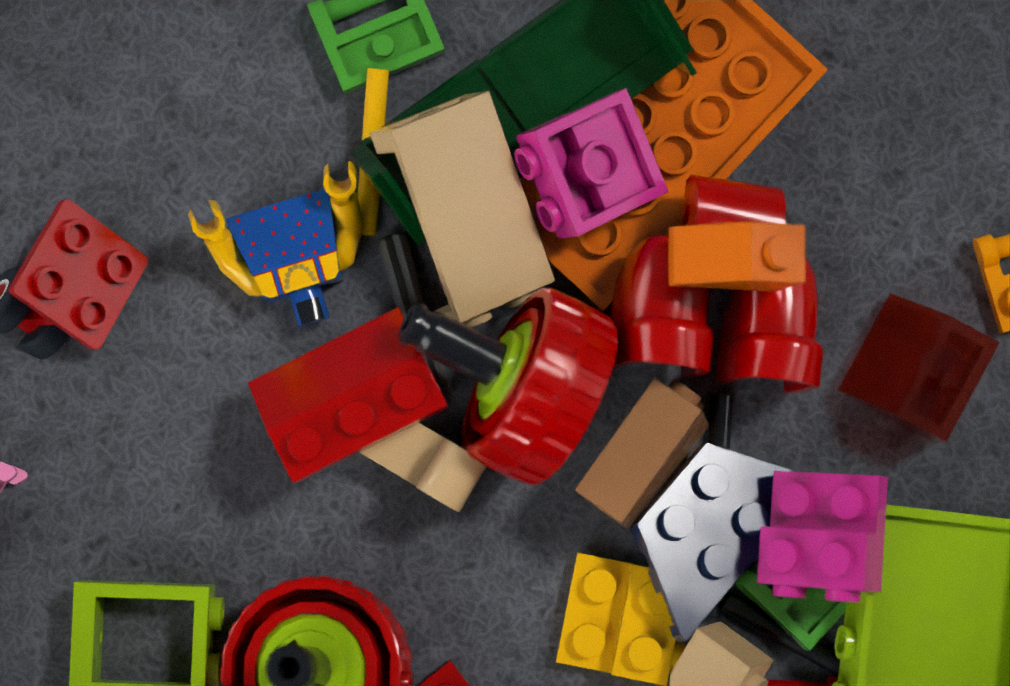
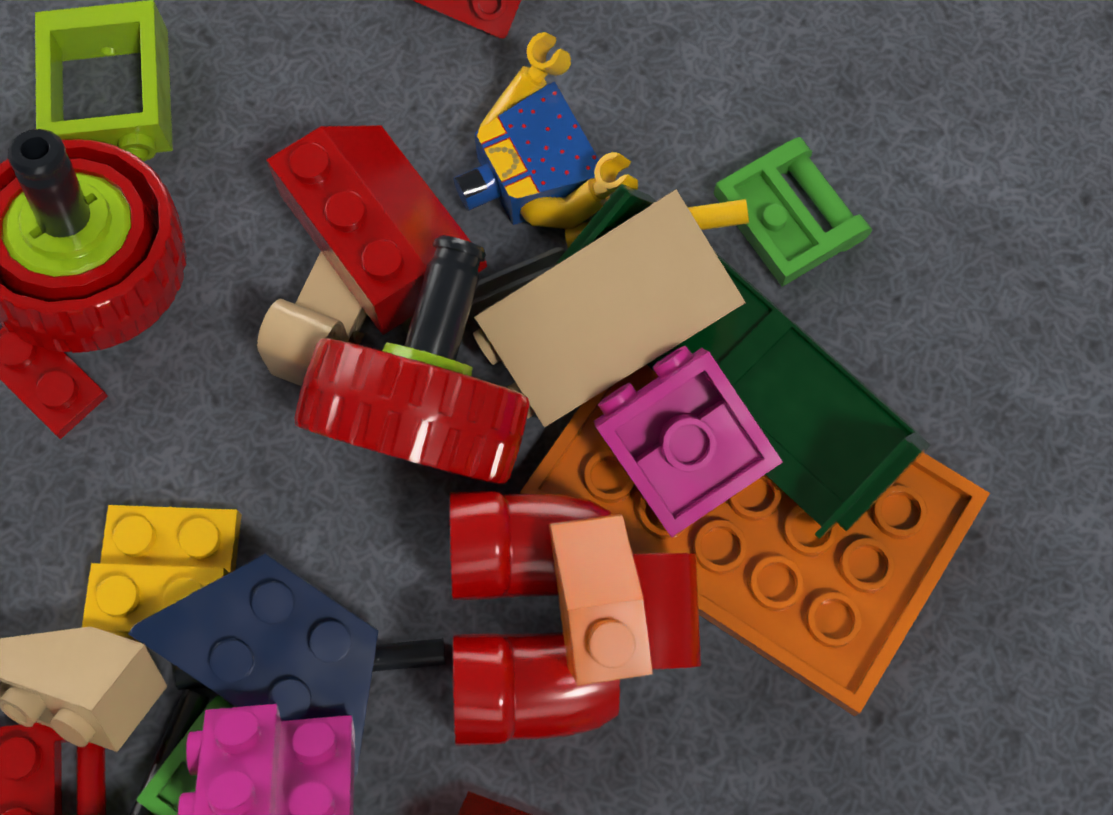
camera: 80 degrees right, 15 degrees down
(645, 451) = (353, 552): medium nougat brick -> none

